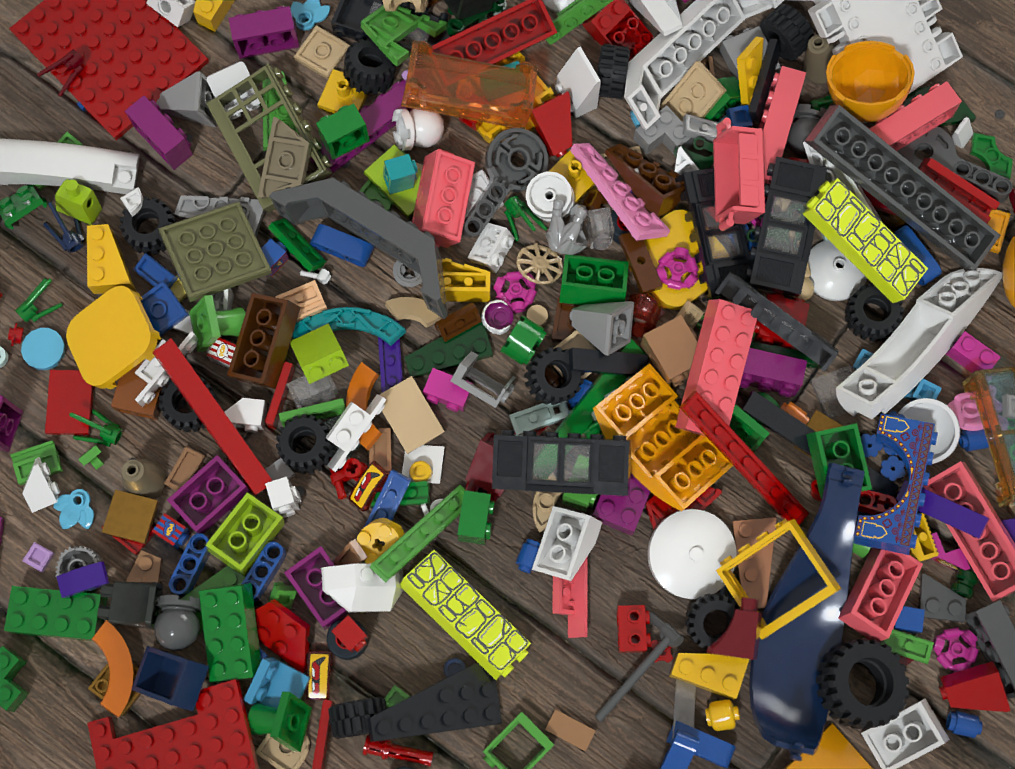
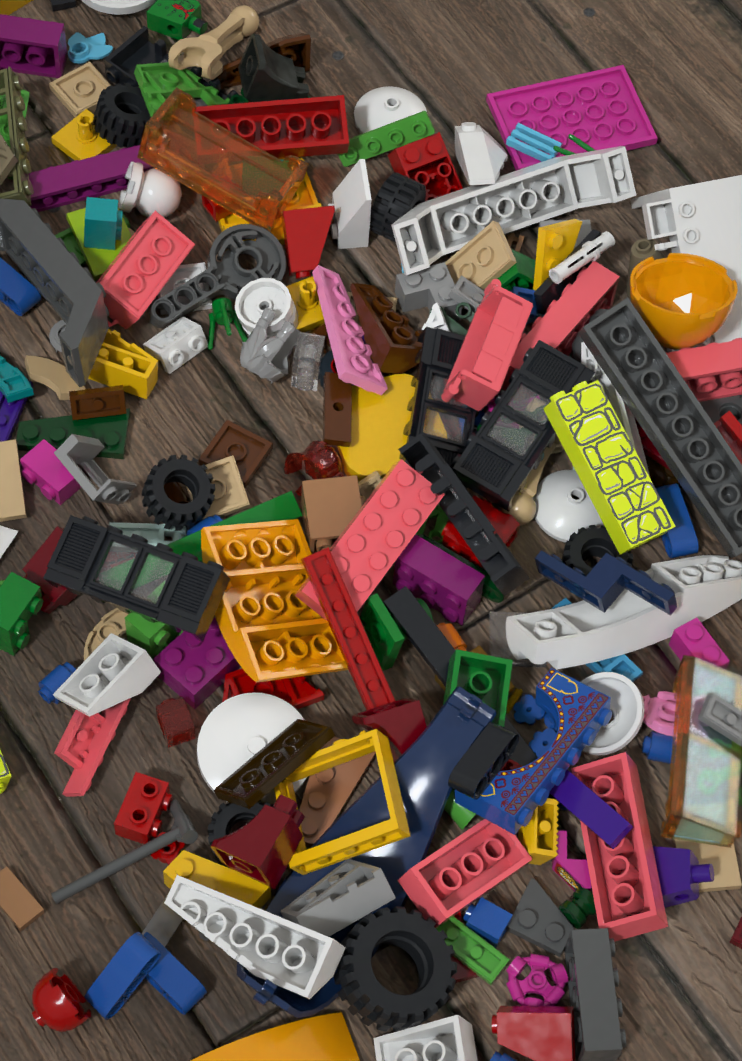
camera: 15 degrees right, 15 degrees down
(342, 131) = (59, 161): green brick -> none
(497, 317) = (146, 415): magenta hair -> none
(515, 291) = (181, 397): dark pink piece -> none
(522, 340) = (161, 441): green brick -> none
(537, 314) = (194, 433): tan tile -> none
(539, 263) = (222, 379): tan wheel -> none
(593, 280) = (274, 414): green brick -> none
(596, 362) = (243, 496): black tile -> none
(604, 324) = (265, 459): light grey slope -> none
(625, 553) = (175, 721): none -> clear red brick
(678, 269) = (379, 433): dark pink piece -> none
(719, 566) = (274, 763): none -> dark brown tile
(722, 715) = (203, 952): yellow head -> none
(769, 705) = (258, 939): none -> white wedge
(778, 61) = (601, 243): none -> white pin
(789, 29) = (625, 226): black tyre -> none
(790, 500) = (398, 720): none -> dark red hips
(804, 651) = (340, 898): none -> light grey wedge
(870, 511) = (483, 760): none -> black beam
(895, 331) = (606, 582): none -> dark blue bracket

